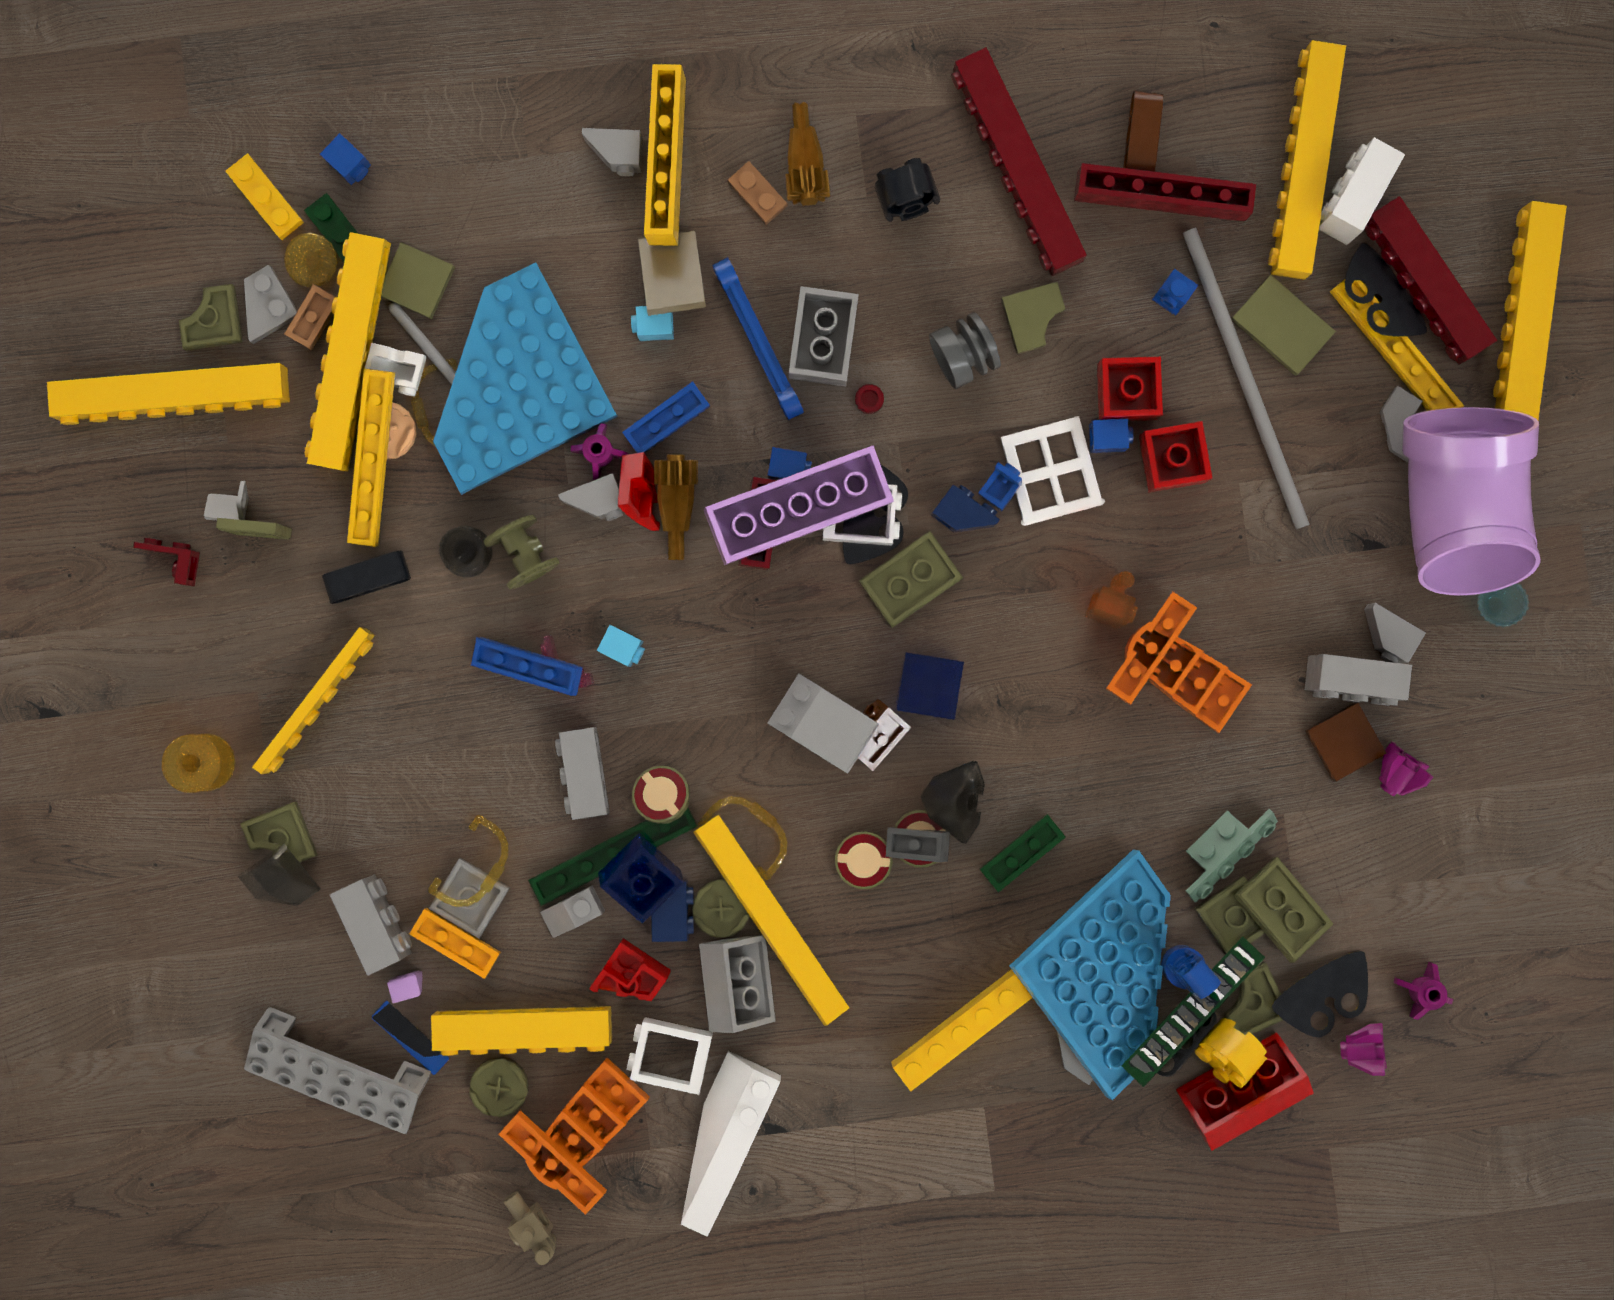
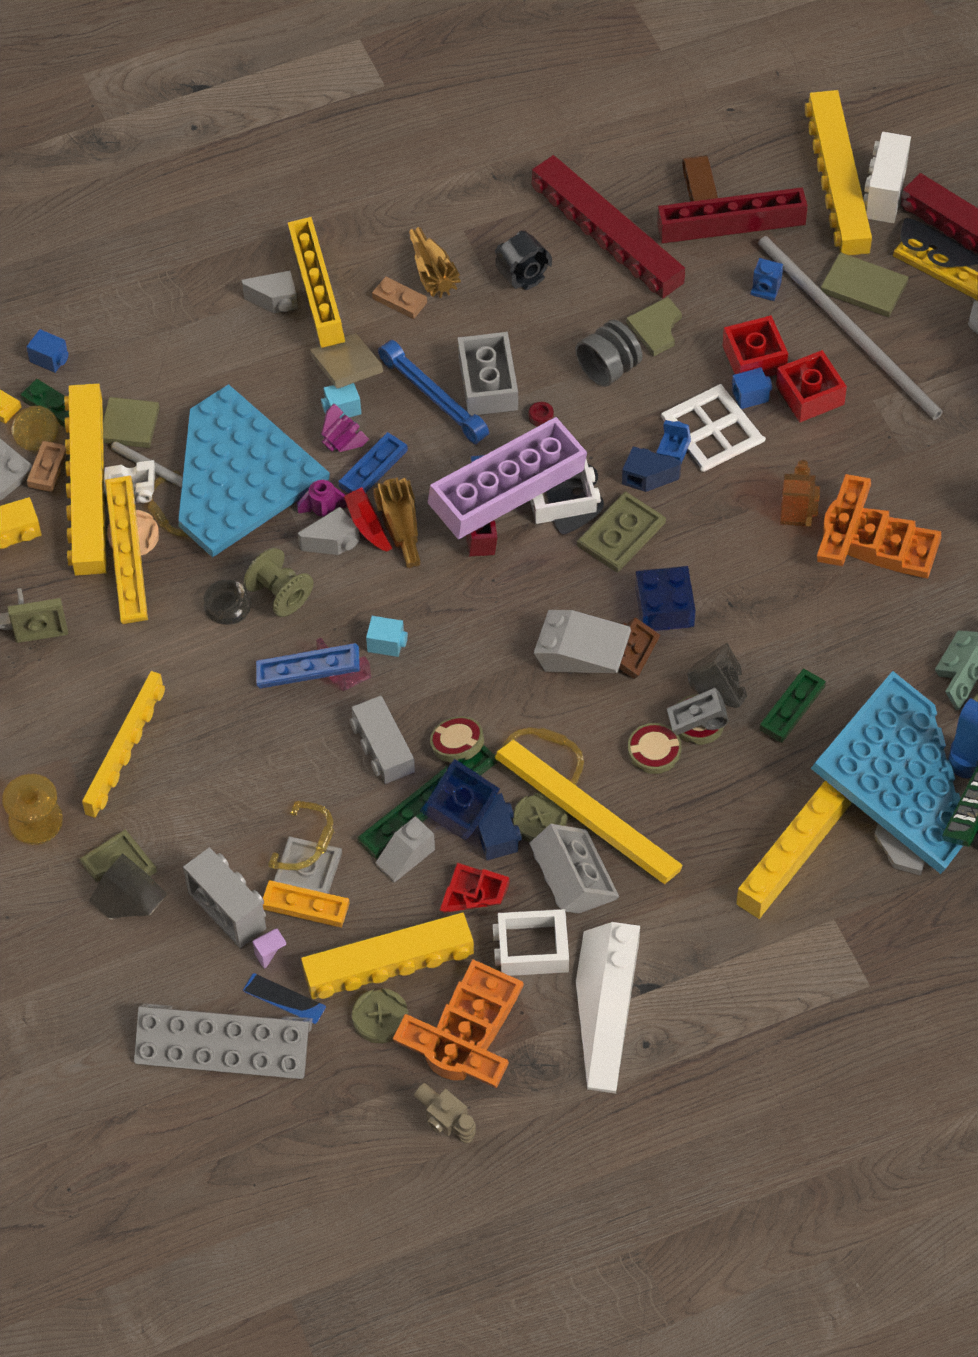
camera: 15 degrees left, 30 degrees down
(366, 577) = (145, 640): black beam -> none
(642, 366) = (340, 432): none -> magenta brick

